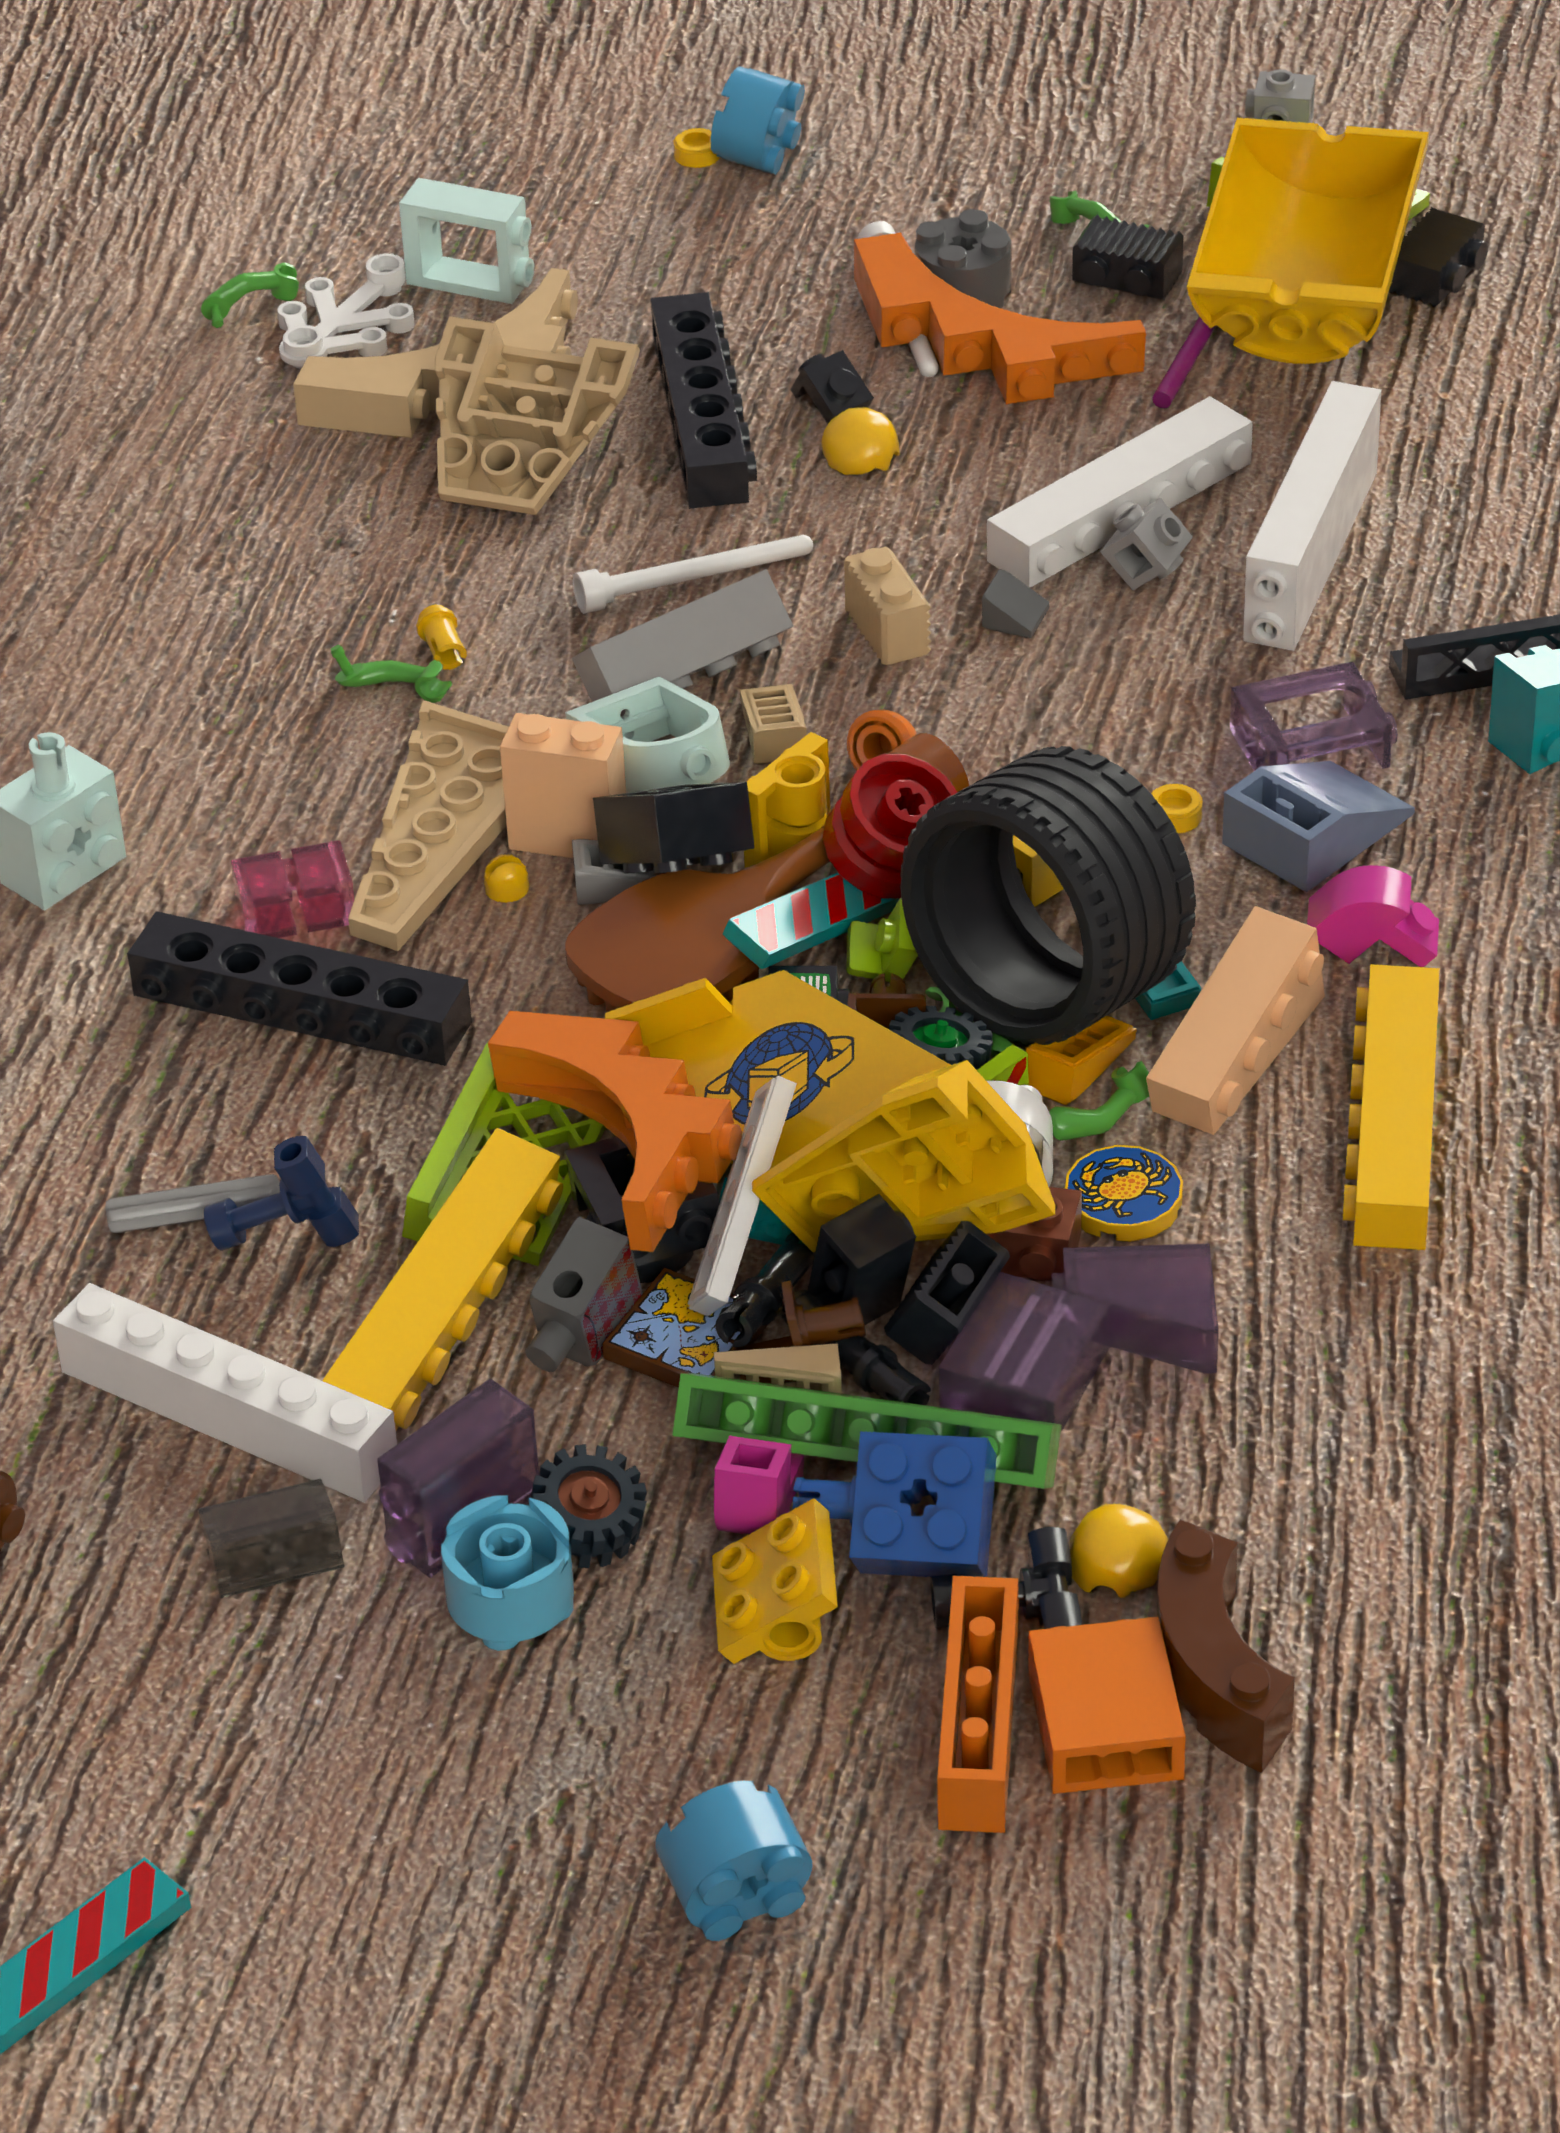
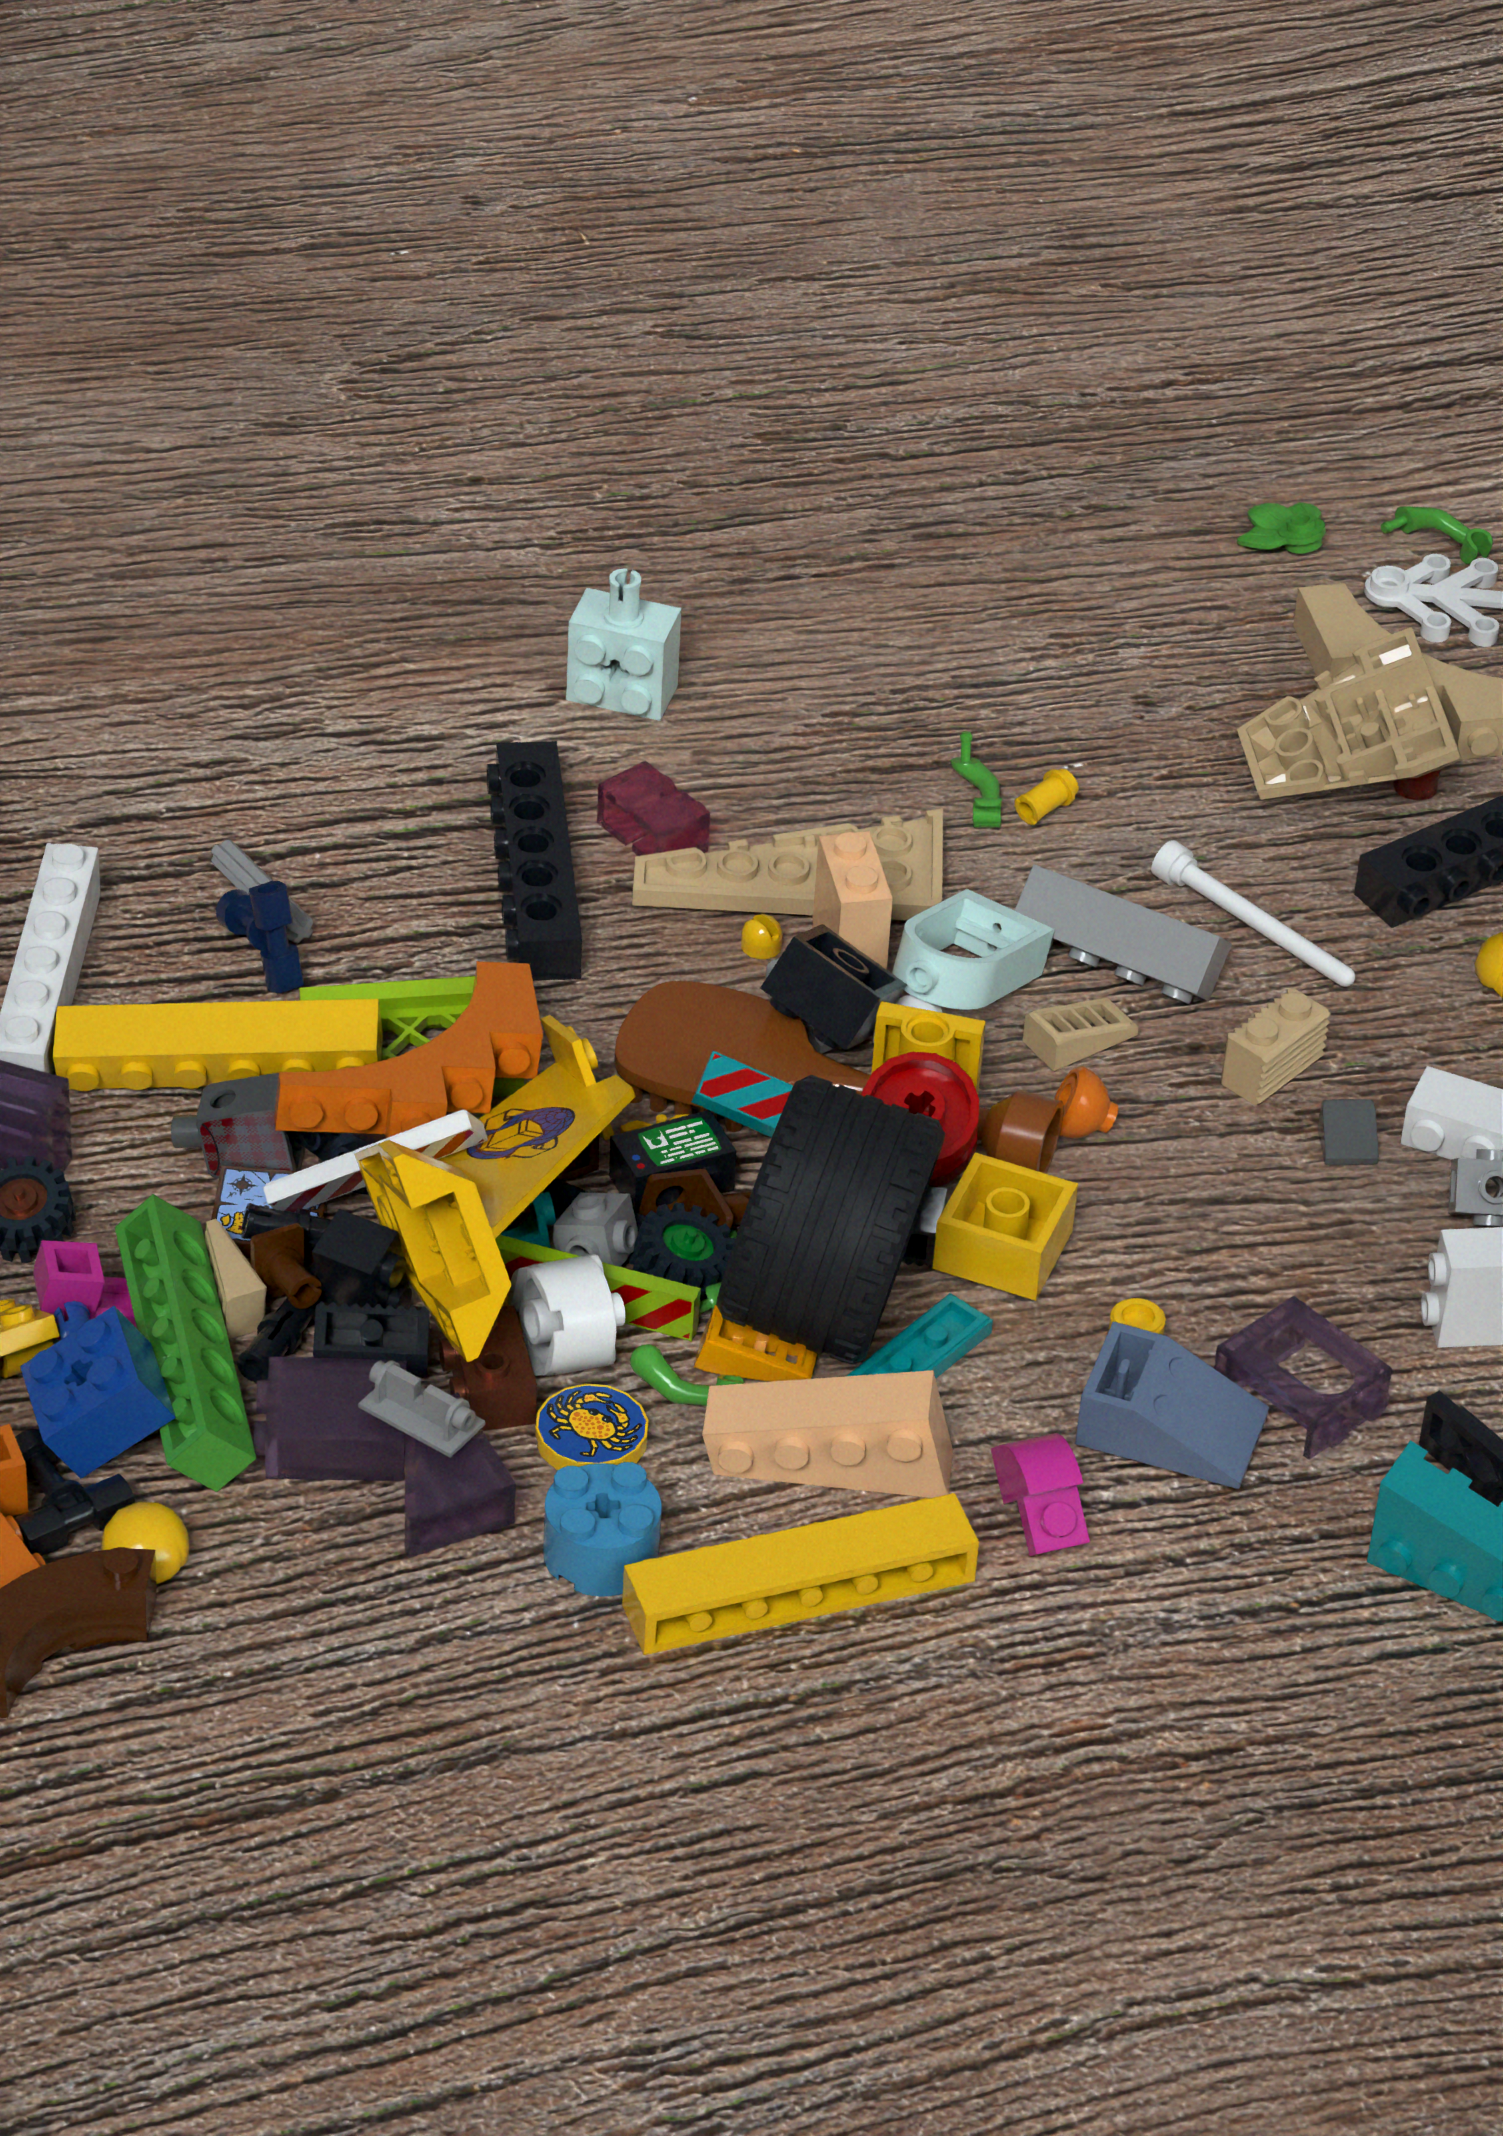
camera: 60 degrees right, 0 degrees up
(168, 378) = (1276, 525): none -> bright green plate
(1090, 1274) = (420, 1411): none -> light grey hinge
(1280, 1211) = (598, 1523): none -> dark azure brick

